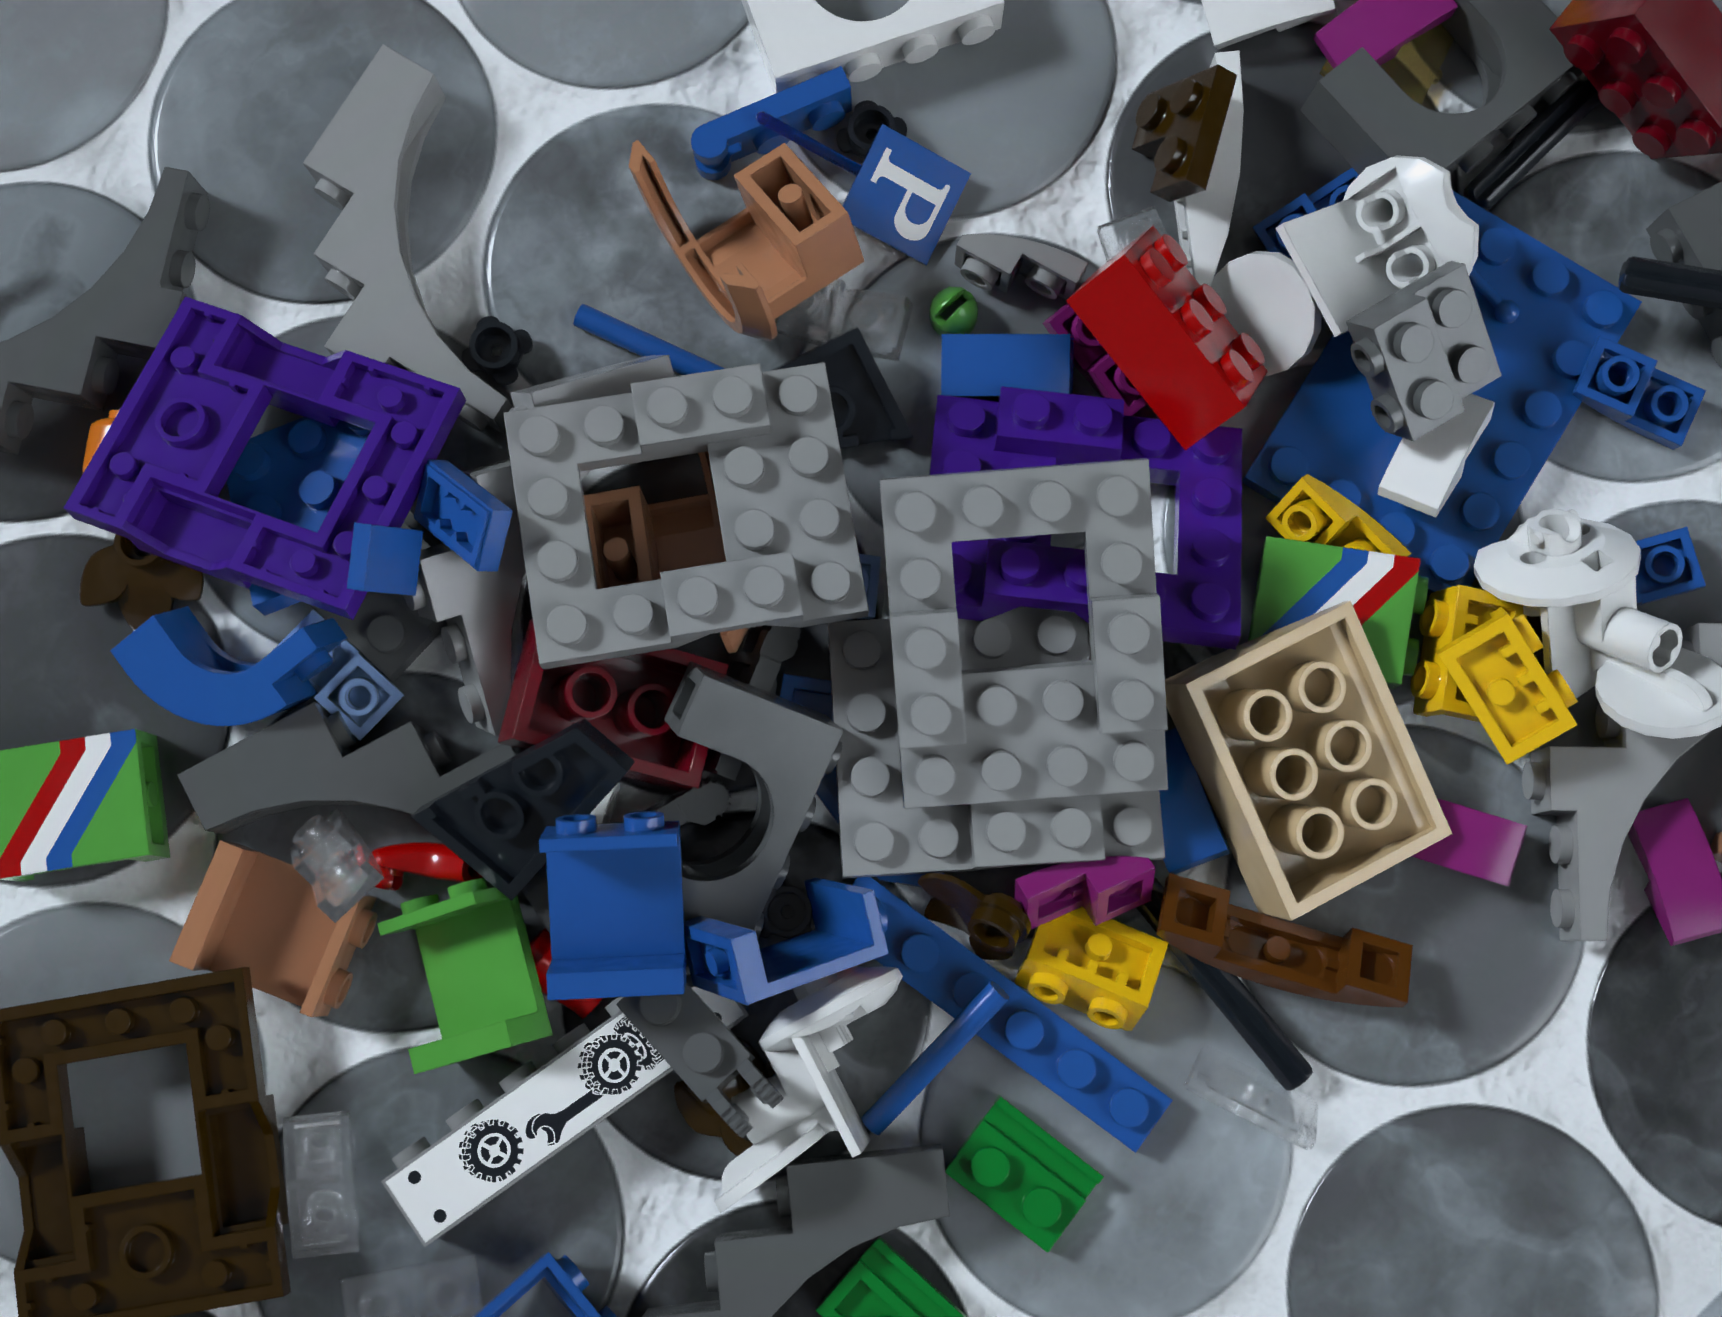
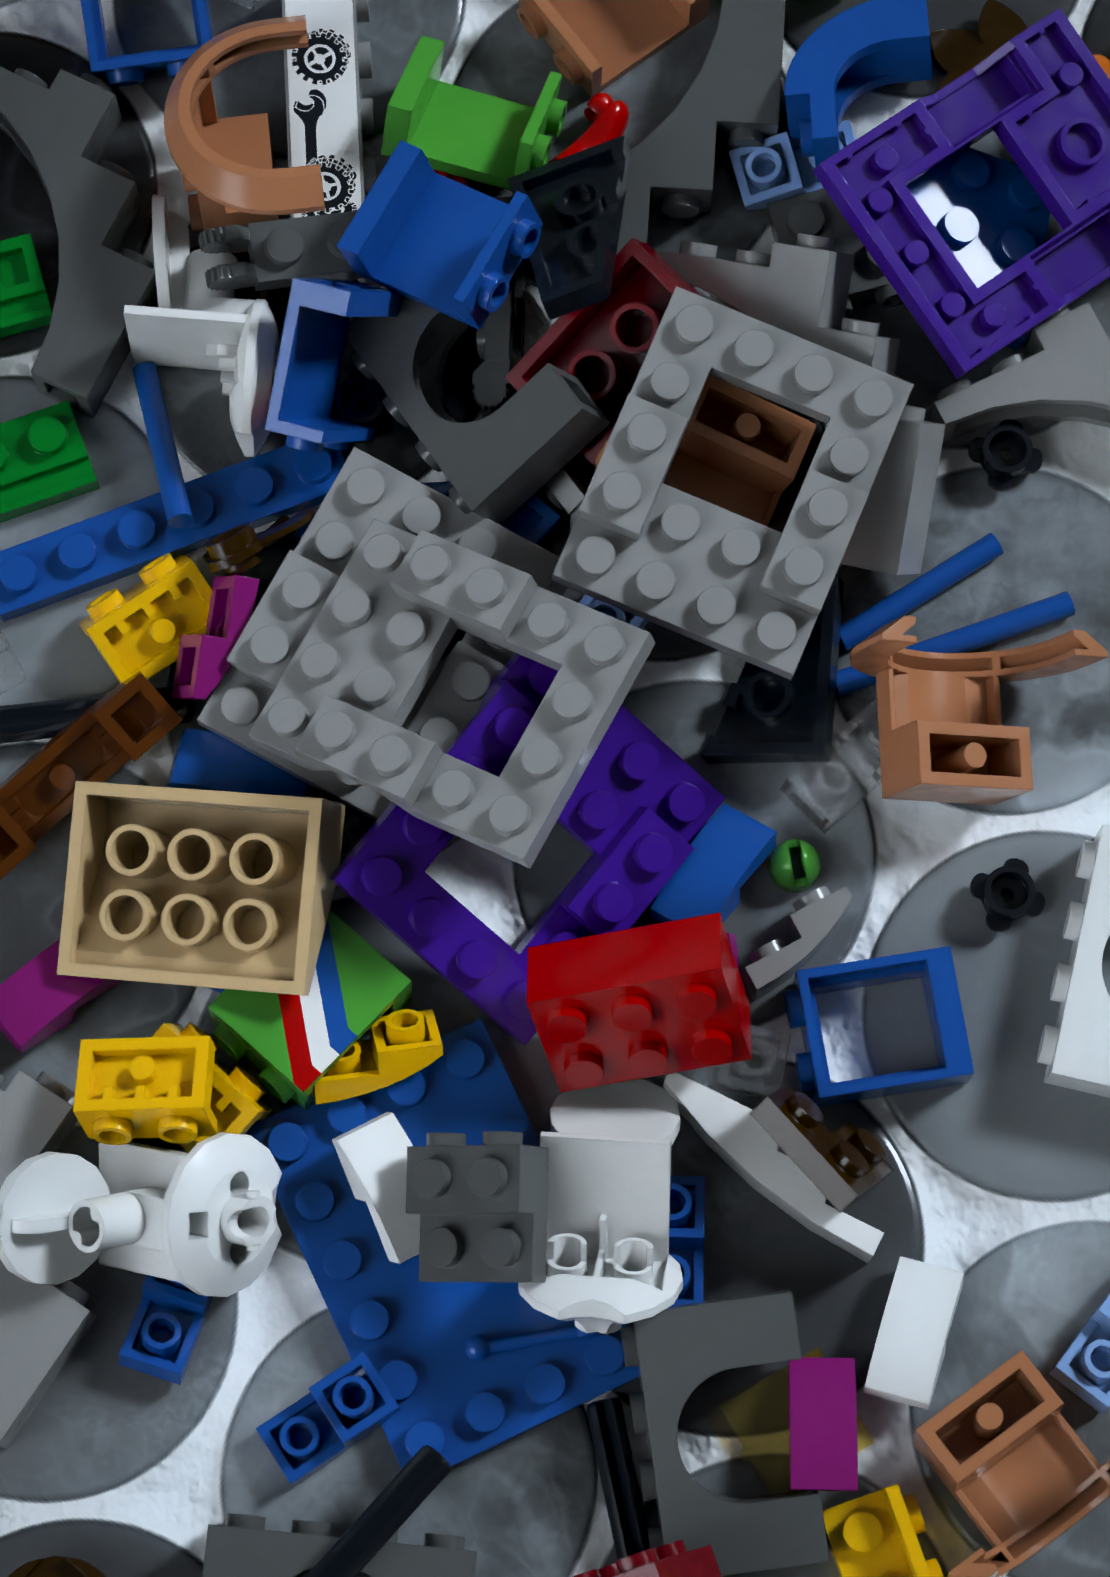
camera: 120 degrees right, 5 degrees down
(334, 862) = (633, 72): clear slope -> none
(384, 559) = (844, 219): blue tile -> none
(463, 515) = (847, 305): blue plate -> none
(639, 1172) = (233, 156): none -> nougat piece
(680, 294) = (975, 635): none -> blue bar
(808, 105) = (1069, 803): blue plate -> none
(898, 192) = (934, 879): blue piece -> none
(1038, 91) = (944, 1011): none -> blue window

